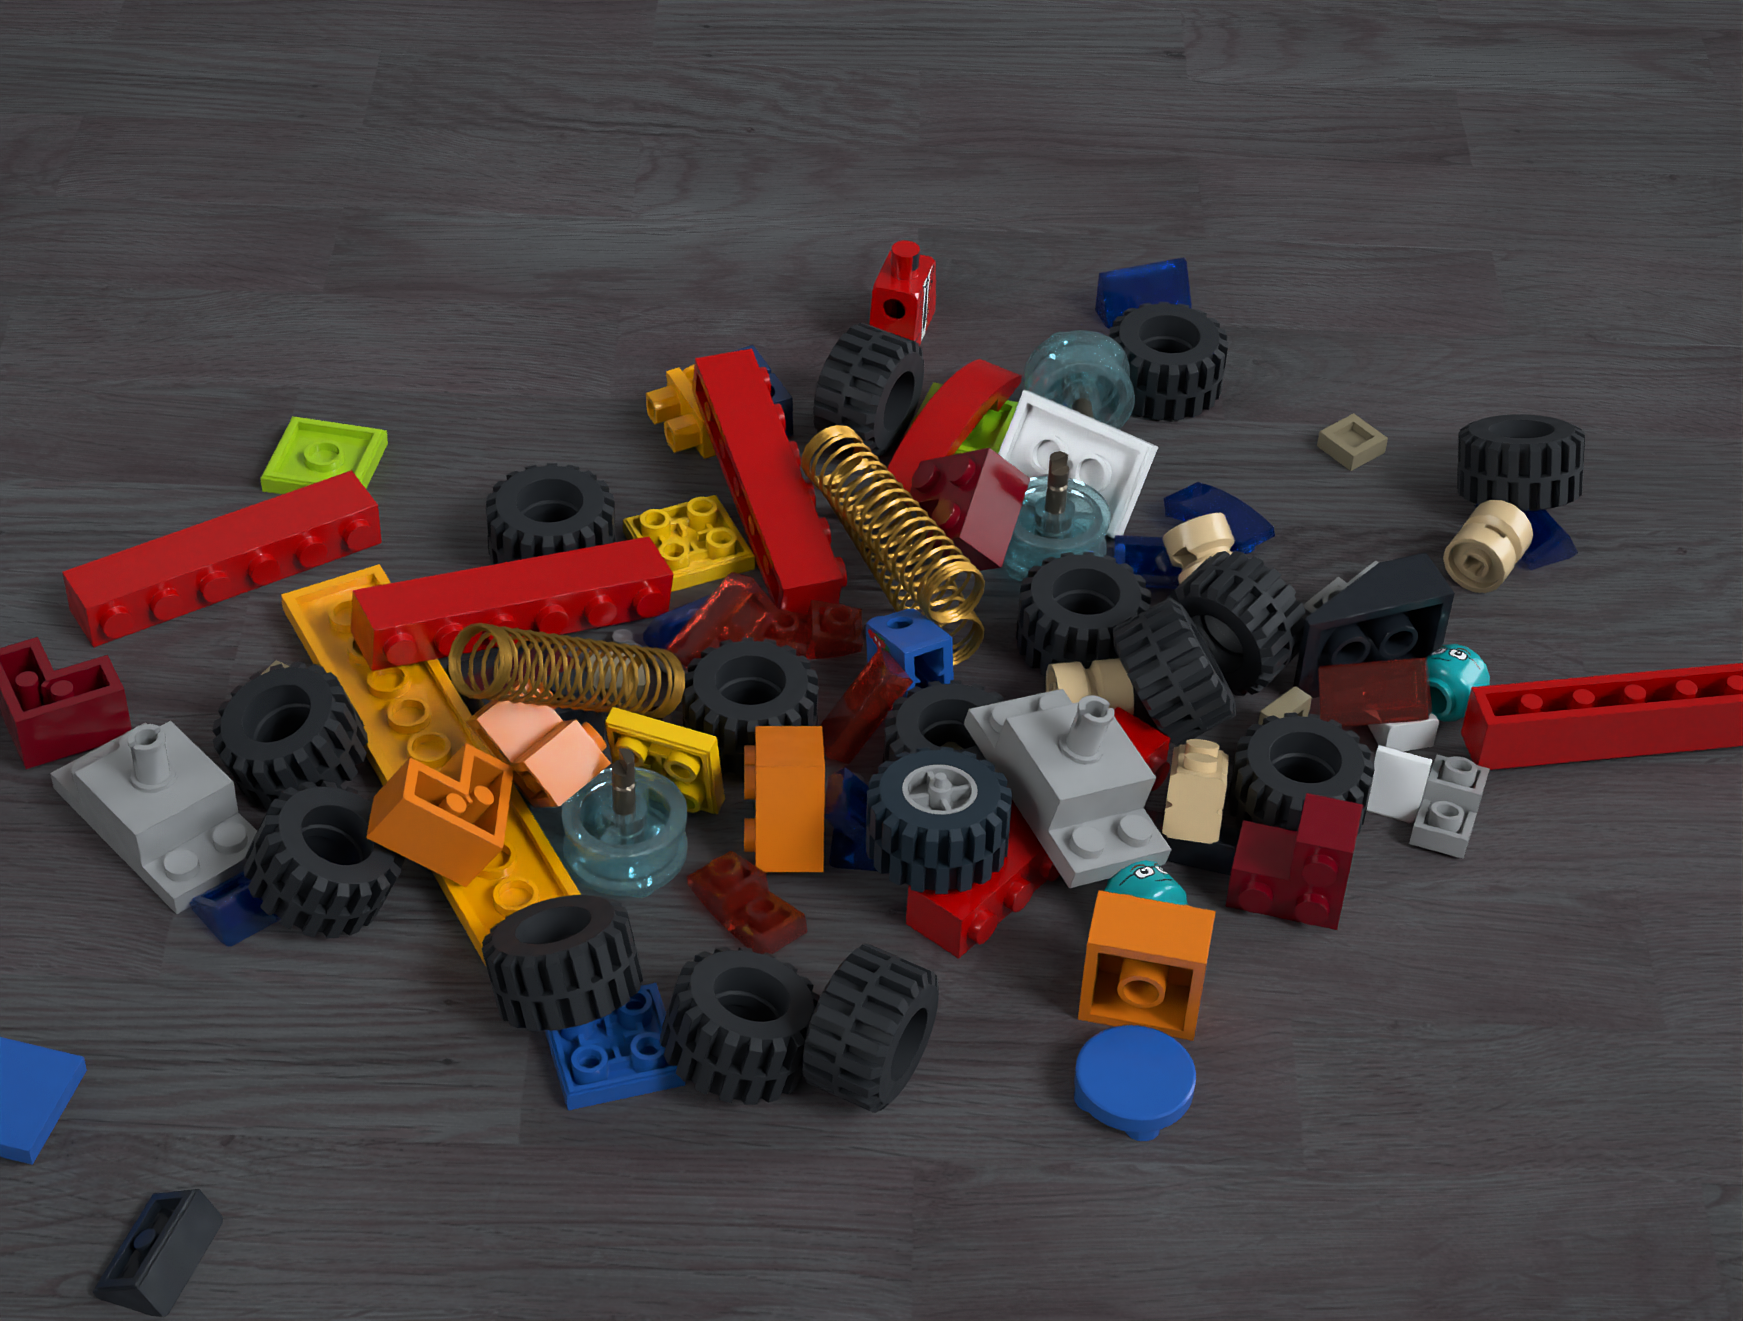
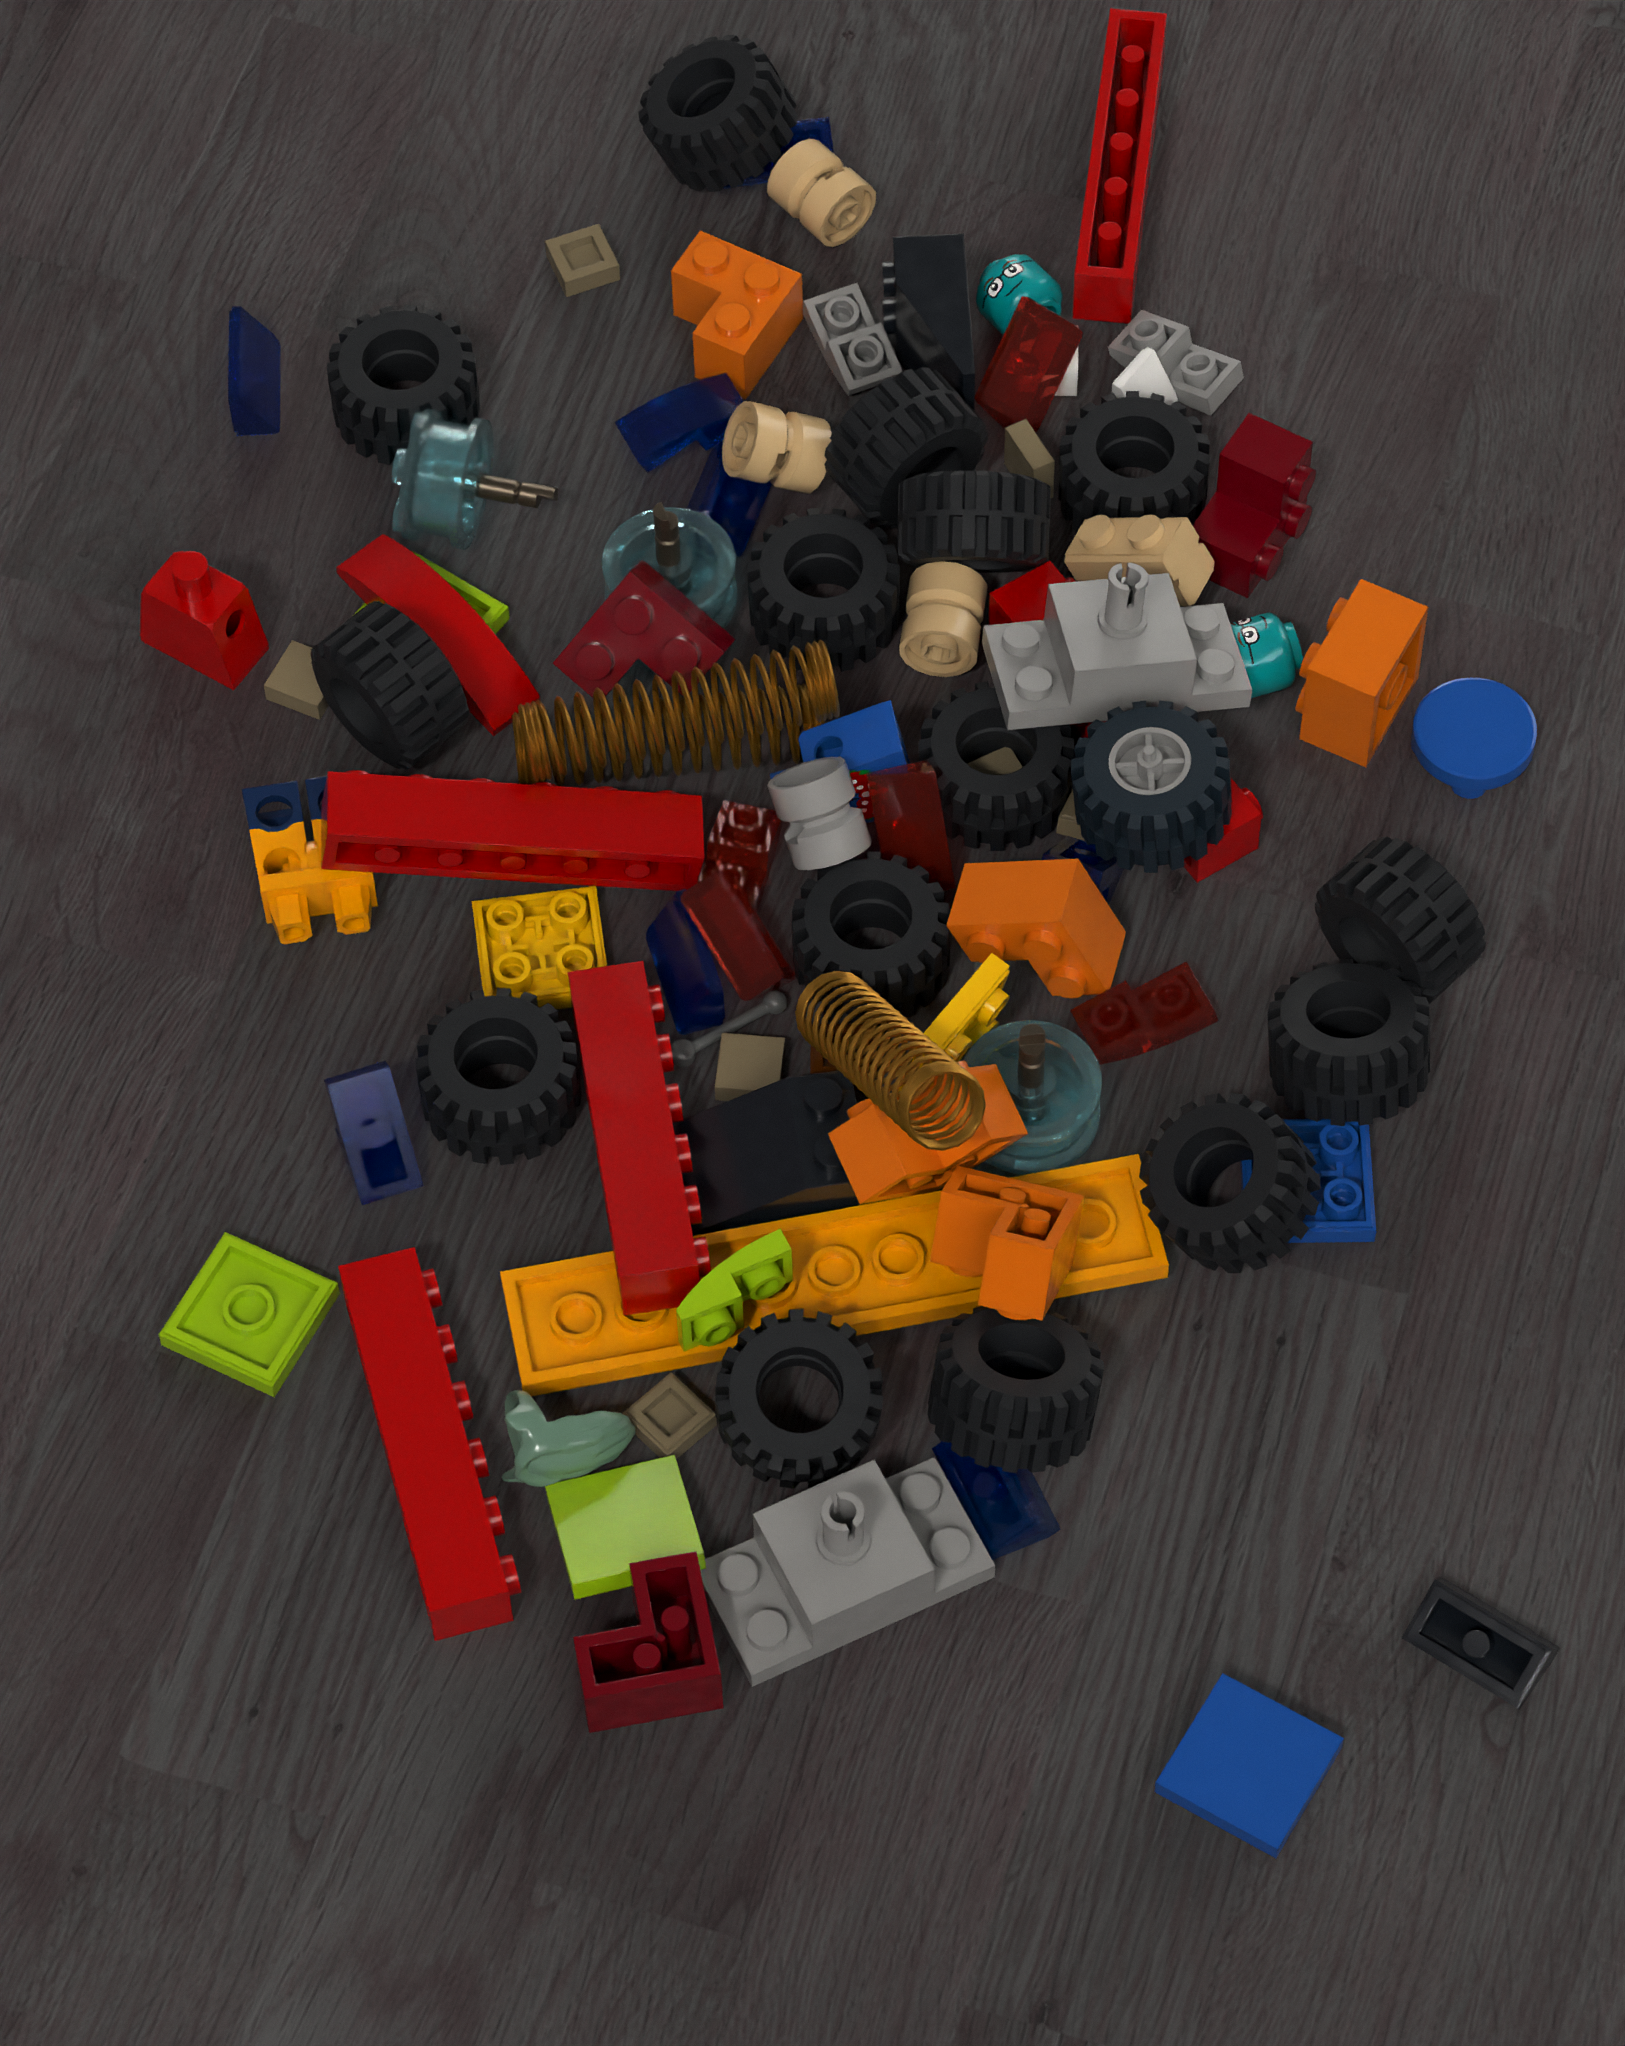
camera: 70 degrees left, 15 degrees up
(171, 676) = (621, 1520): none -> lime tile
(225, 621) = (561, 1447): none -> sand green piece
(374, 671) = (715, 1304): none -> lime slope
(485, 463) = (373, 1132): none -> clear blue slope
(832, 627) = (817, 805): none -> light grey wheel
(1096, 452) = (555, 528): white tile -> none
(1334, 528) = (740, 308): none -> orange brick

